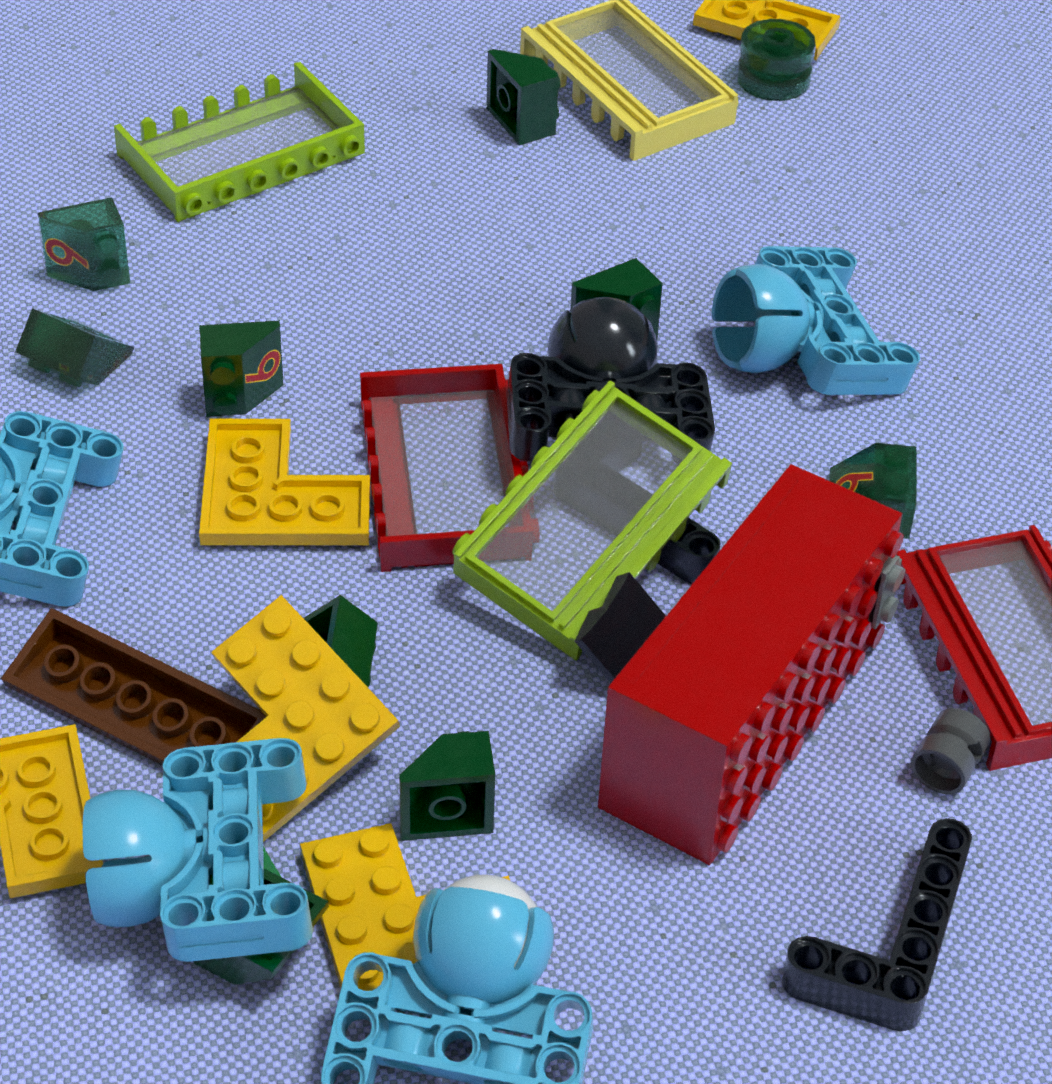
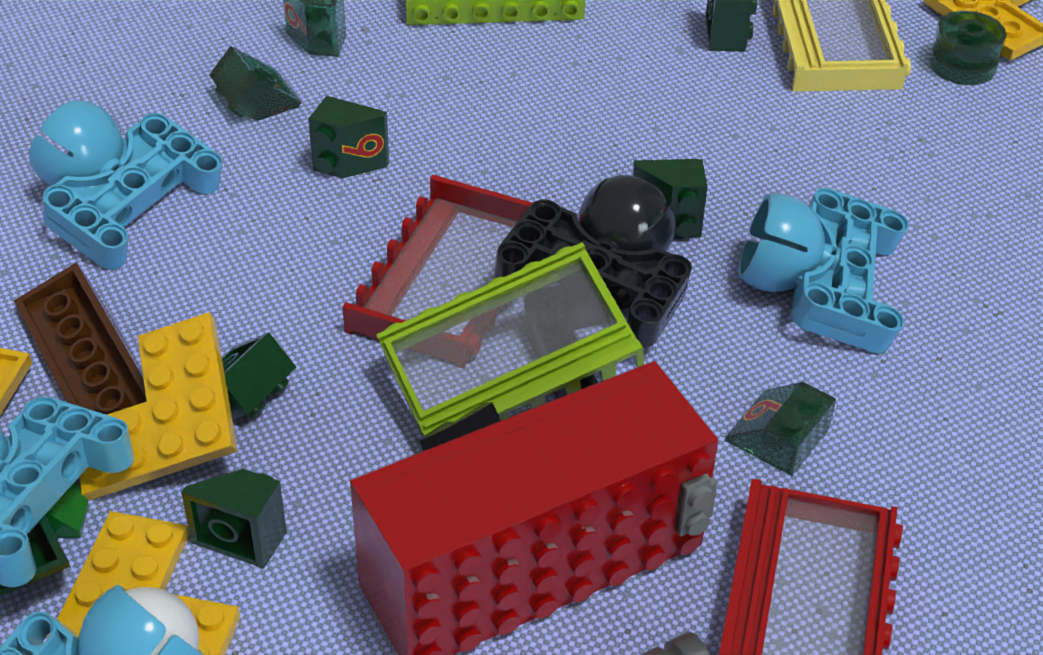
camera: 30 degrees right, 0 degrees up
(258, 503) = (297, 244): yellow plate -> none

